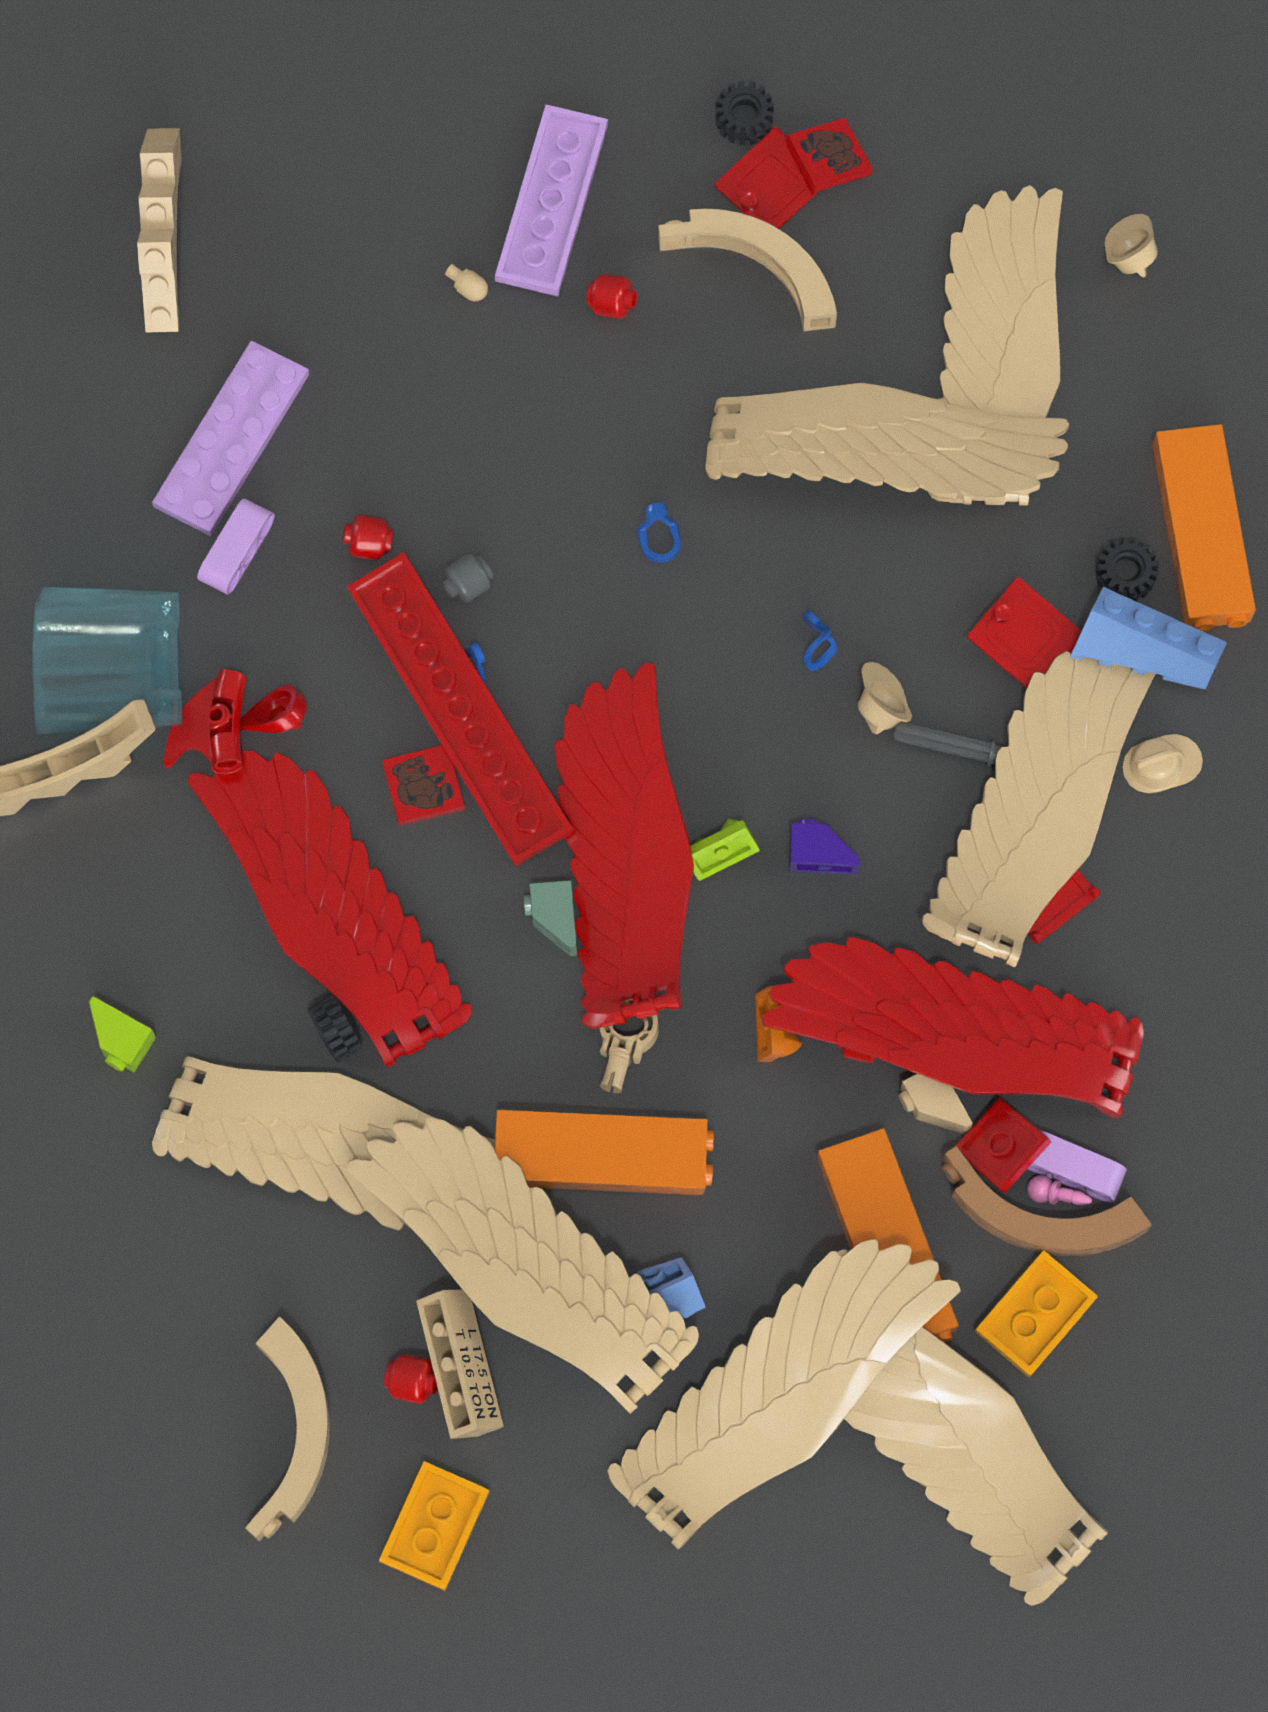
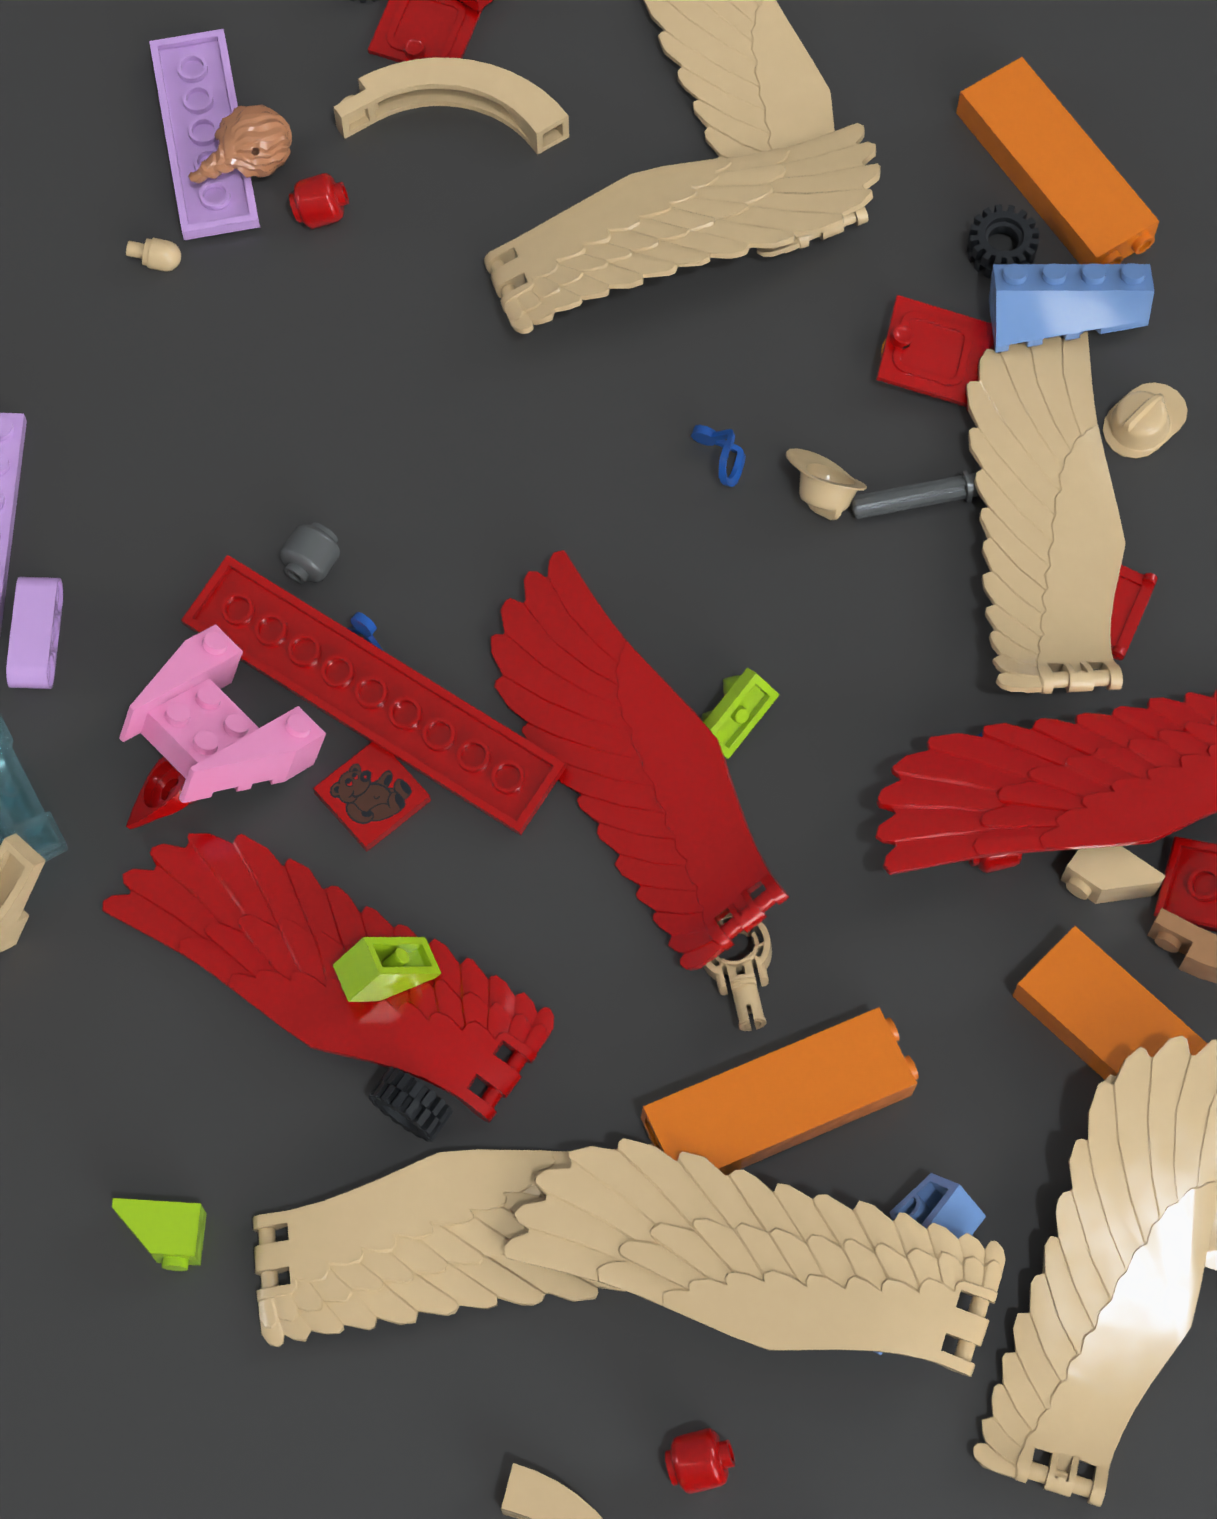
camera: 25 degrees left, 5 degrees down
(211, 724) = (102, 834): red pin -> none
(321, 684) = (207, 732): none -> bright pink wedge
(364, 921) = (385, 967): none -> lime slope
(368, 537) = (178, 558): red head -> none
(459, 1364) = (746, 1416): tan brick -> none
(553, 913) = (590, 865): sand green slope -> none
(581, 227) = (249, 140): none -> nougat hair
(655, 512) = (480, 395): blue piece -> none
(771, 1042) = (899, 891): orange tile -> none
(820, 850) = (842, 665): dark purple slope -> none

